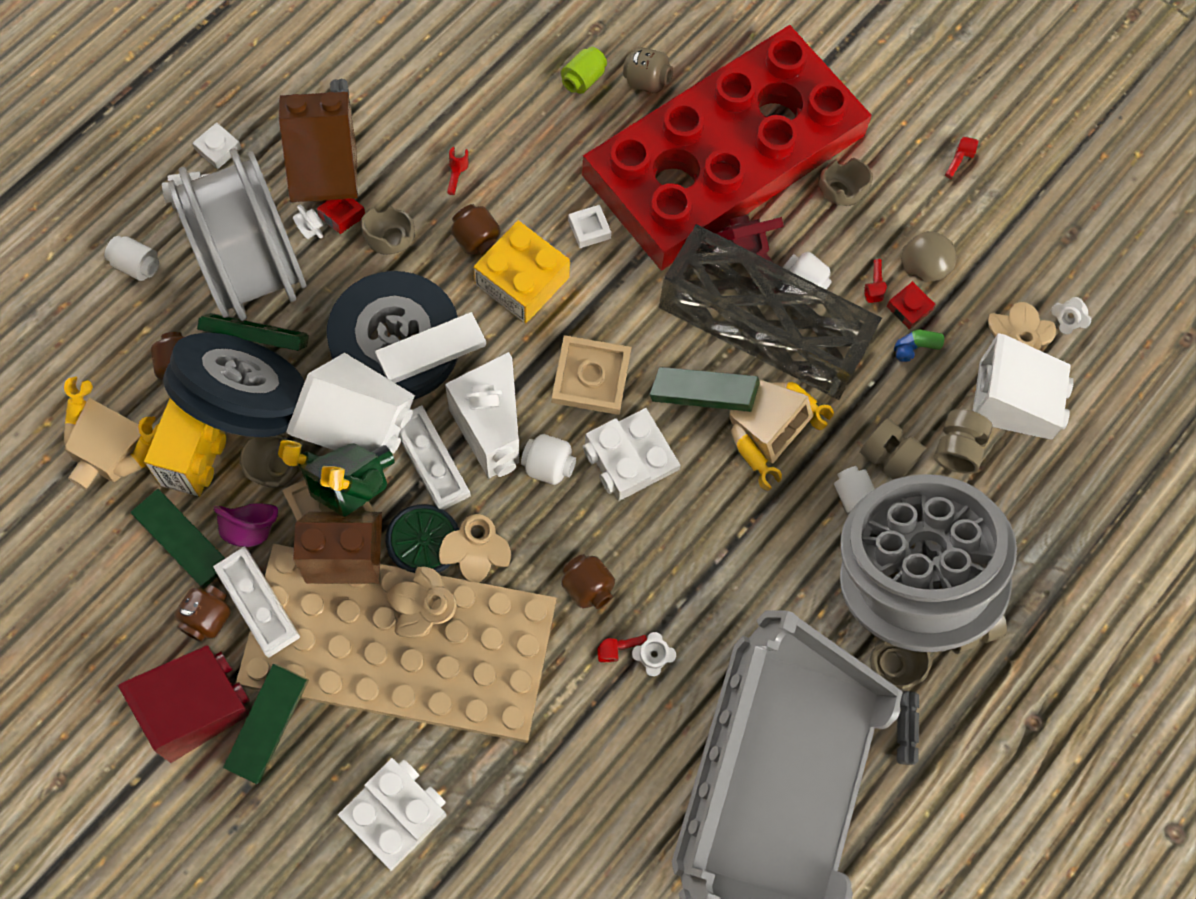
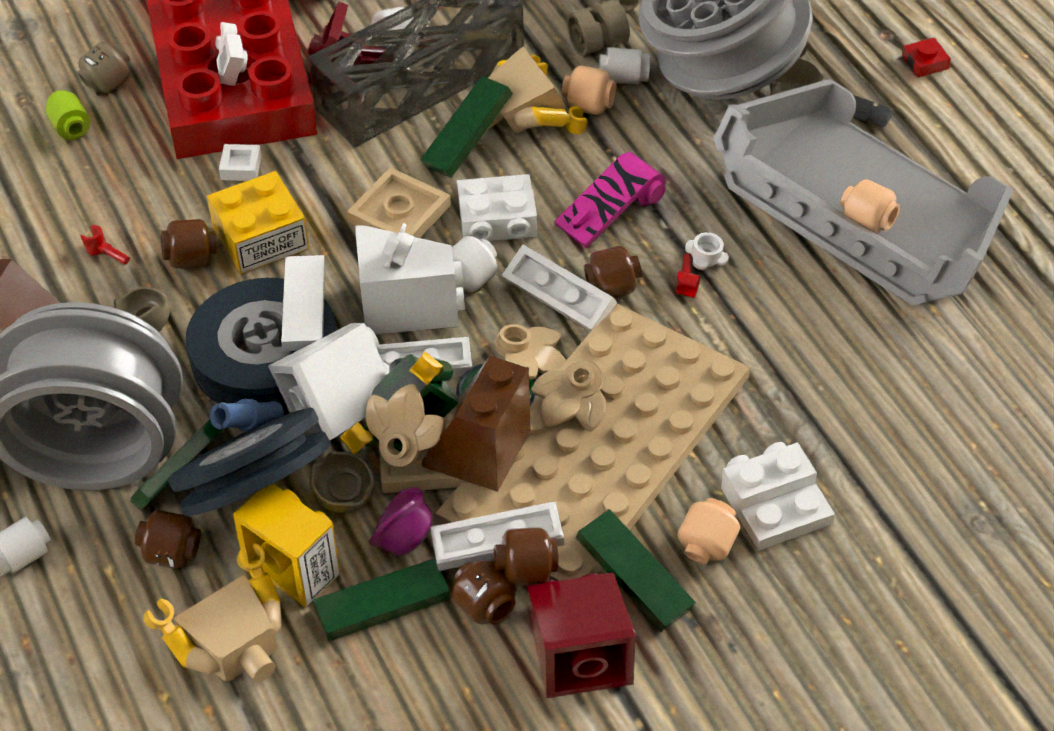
camera: 60 degrees left, 20 degrees down
(231, 632) = (526, 555): none -> reddish brown head
(300, 485) = (402, 419): none -> tan plate
(303, 358) = (244, 414): none -> medium blue pin
(328, 769) = (708, 531): none -> light nougat head
(550, 544) = (558, 288): none -> white plate
(671, 165) = (231, 55): none -> white plate
(683, 545) = (609, 196): none -> dark pink door
(753, 784) = (871, 205): none -> light nougat head
(804, 475) = (589, 89): none -> light nougat head
(1015, 773) = (926, 57): none -> red plate

